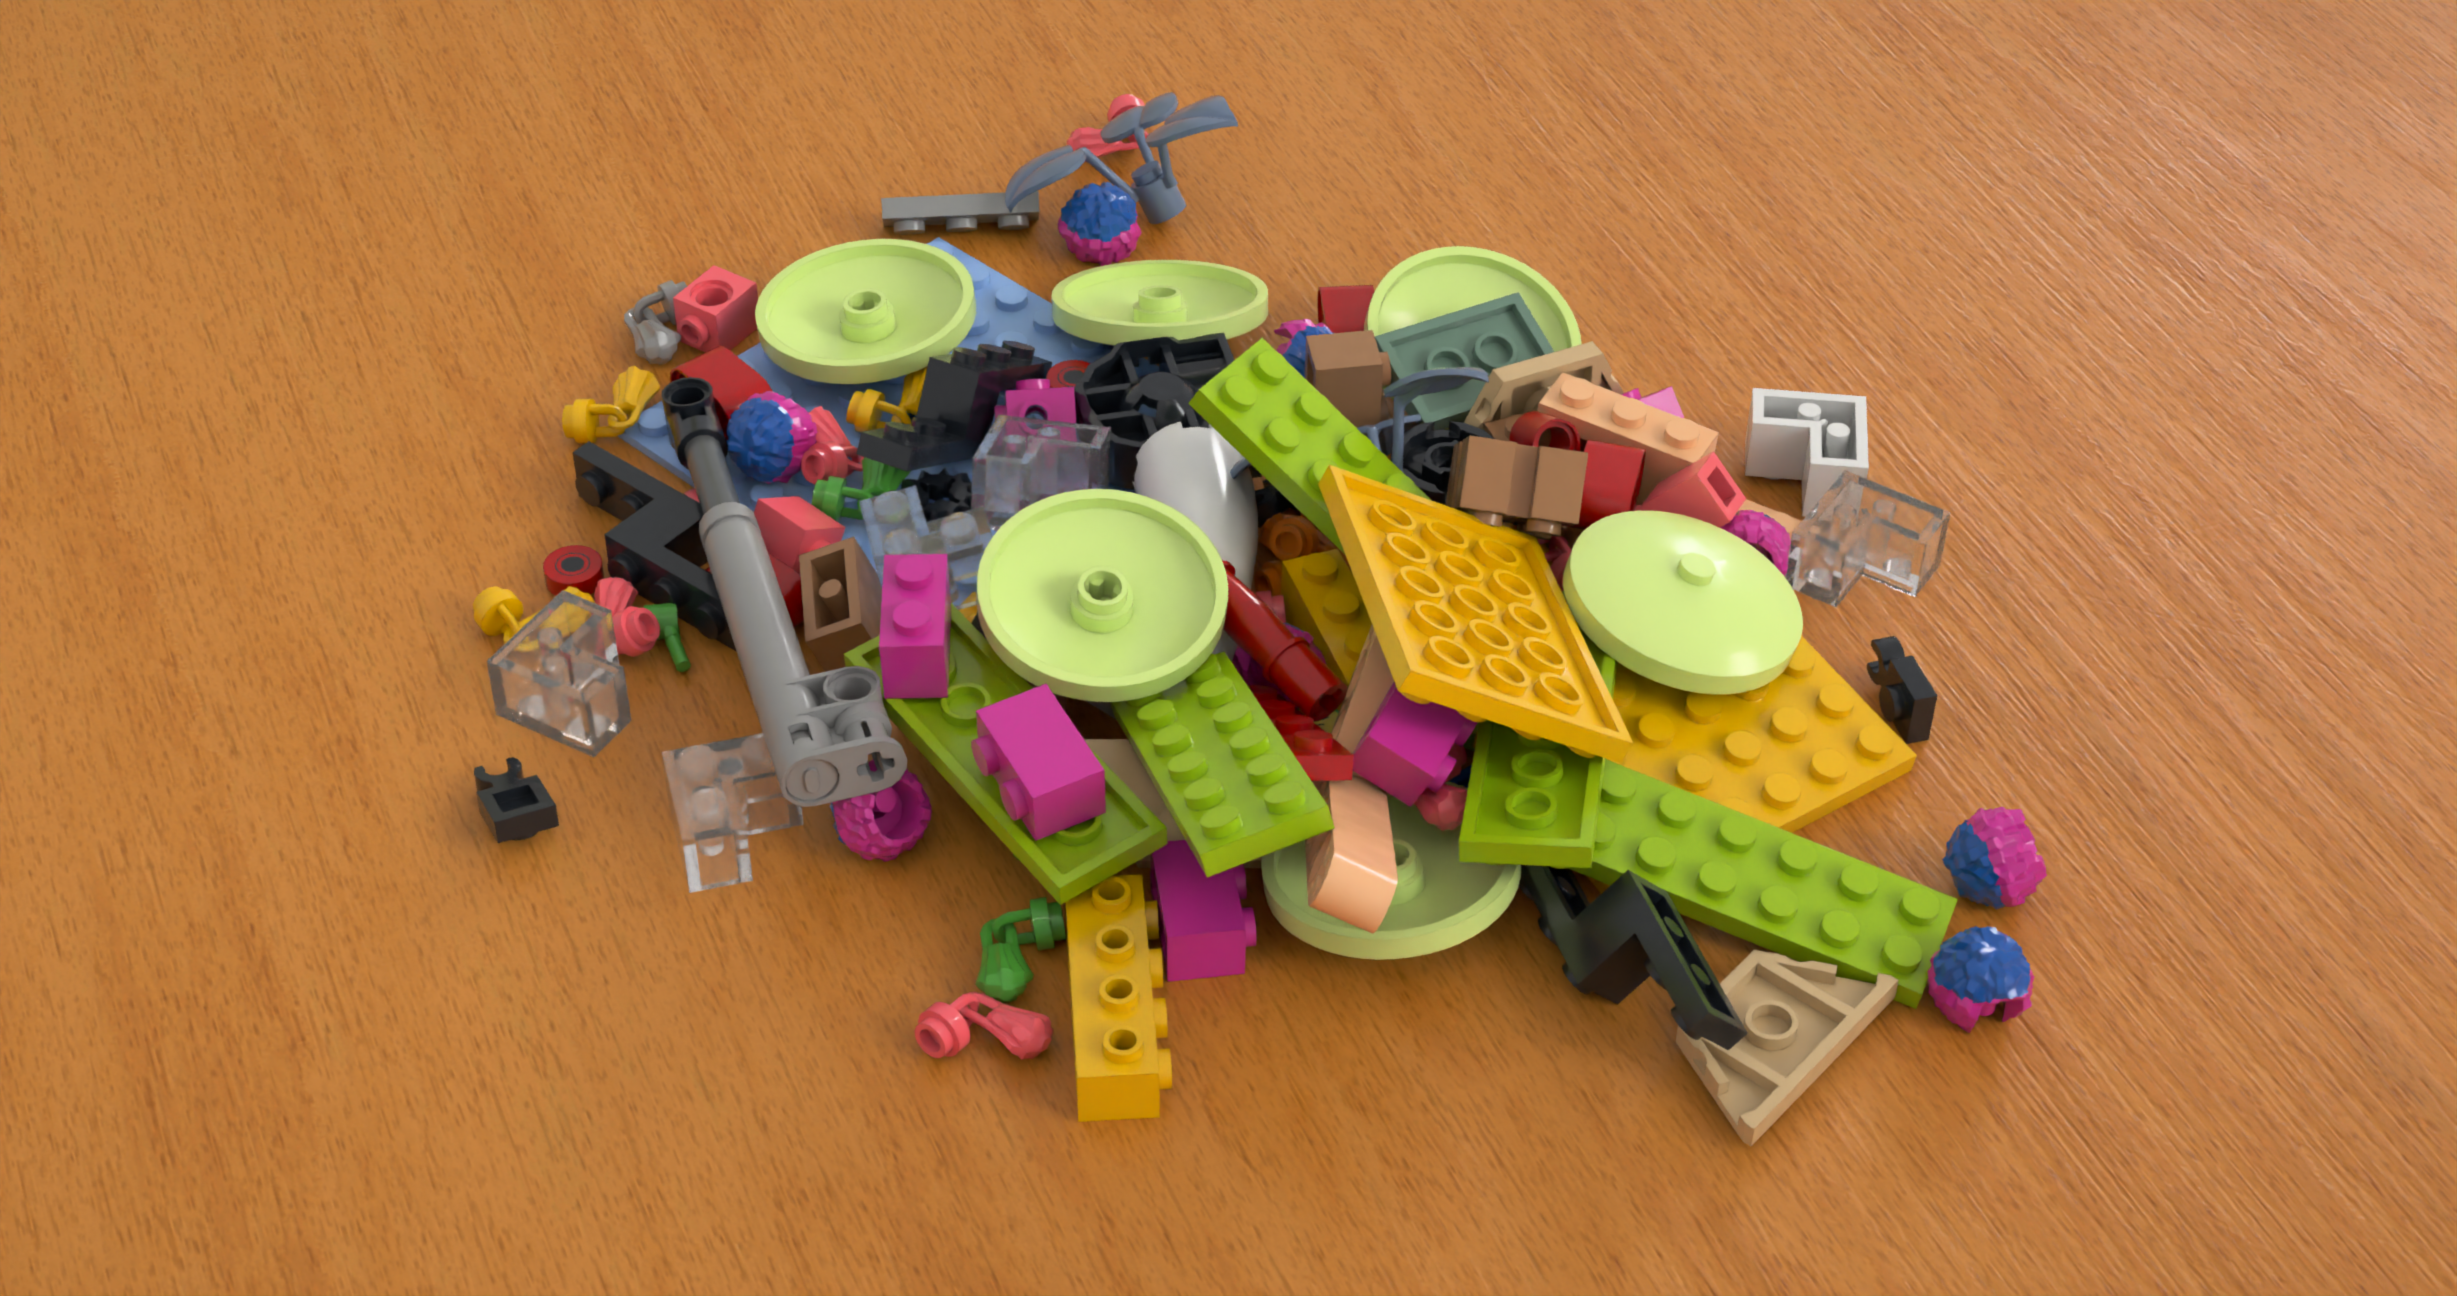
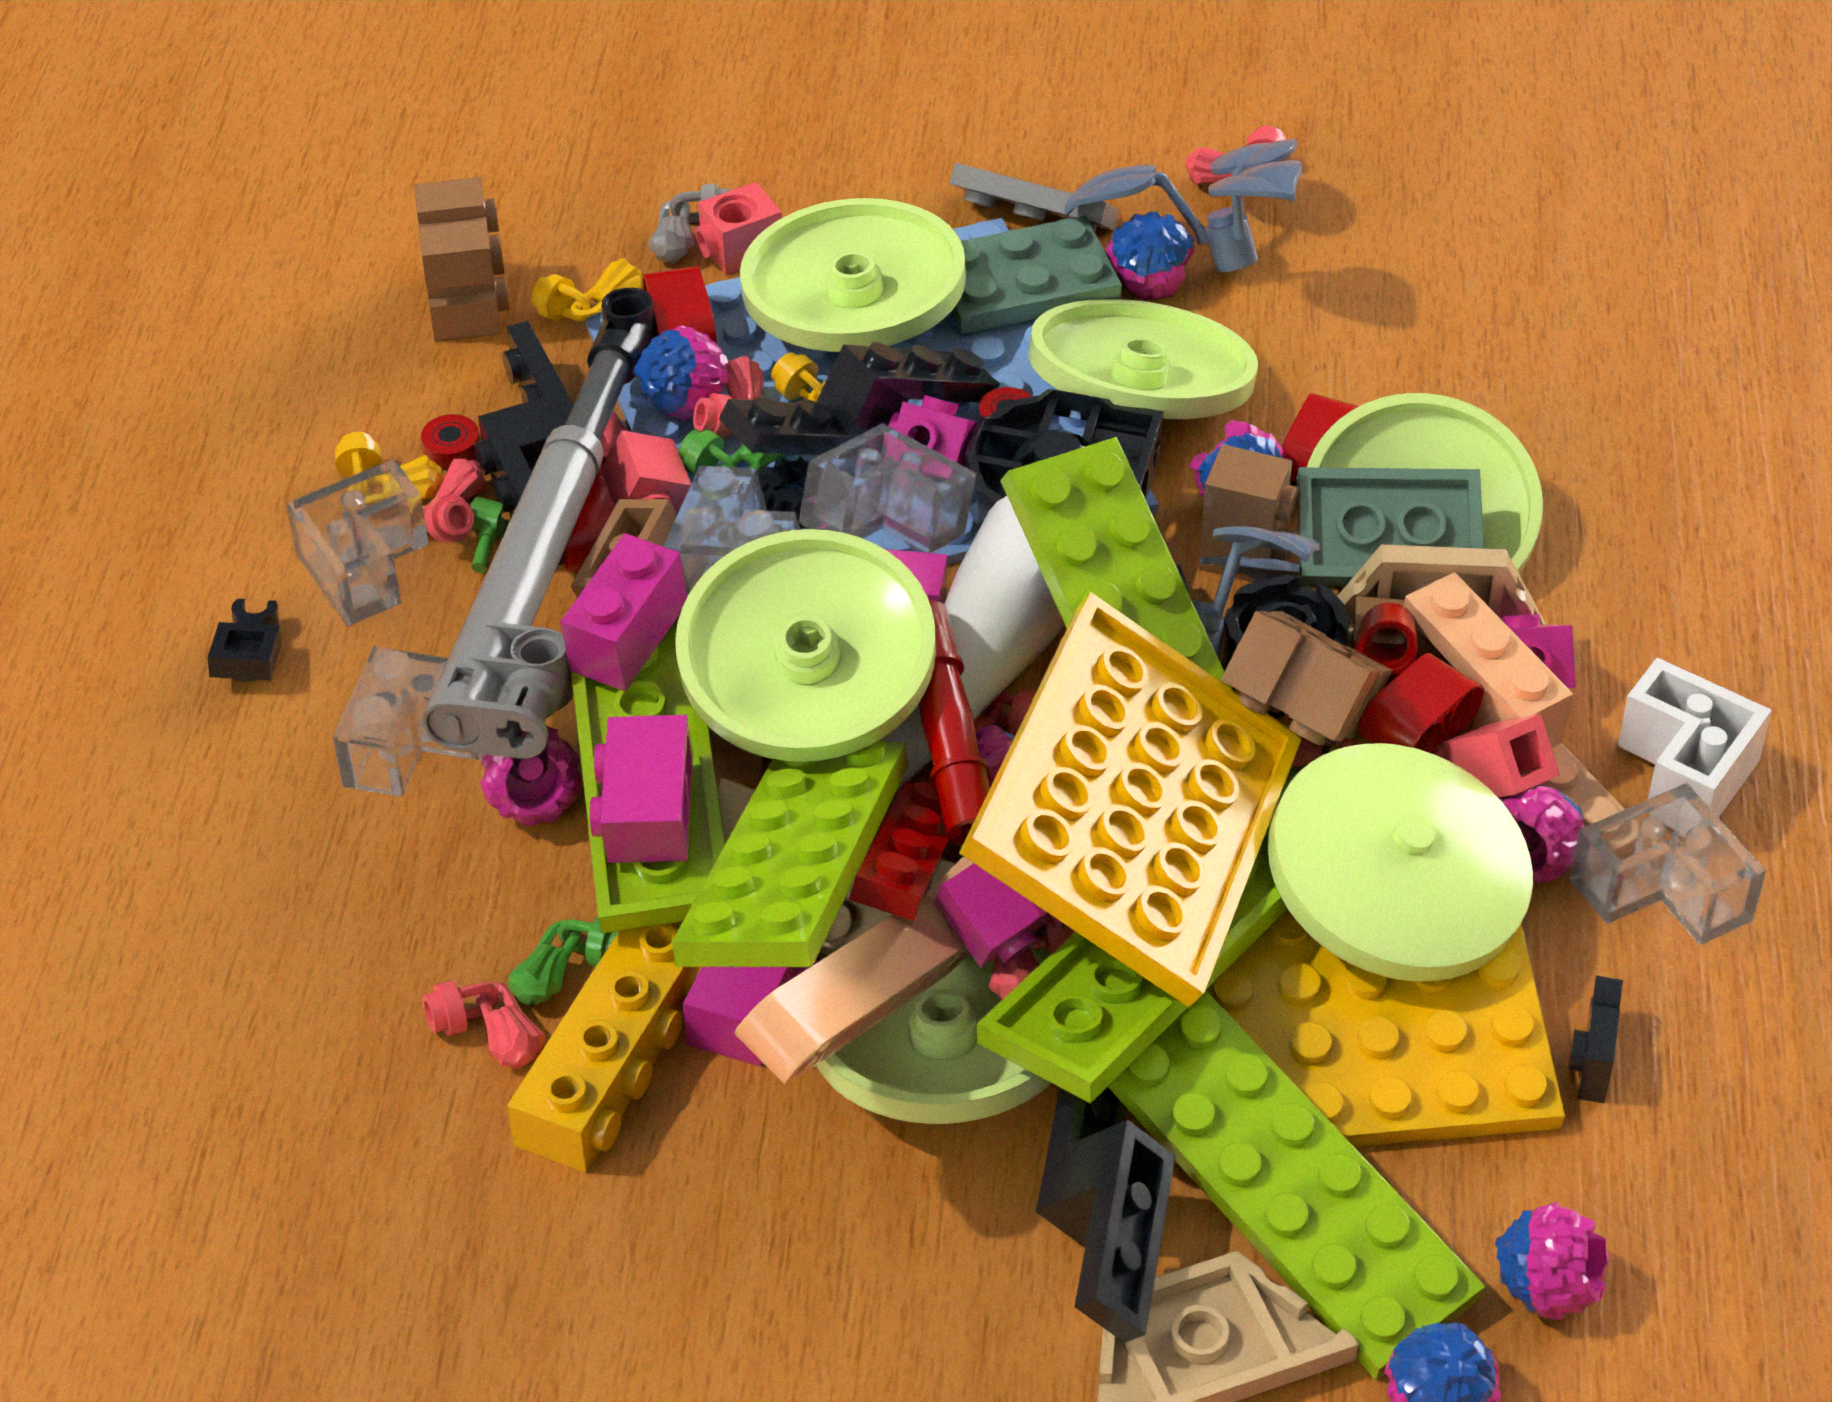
camera: 30 degrees right, 5 degrees up
(482, 410) = (461, 258): none -> medium nougat brick
(1018, 266) = (1030, 271): none -> sand green plate

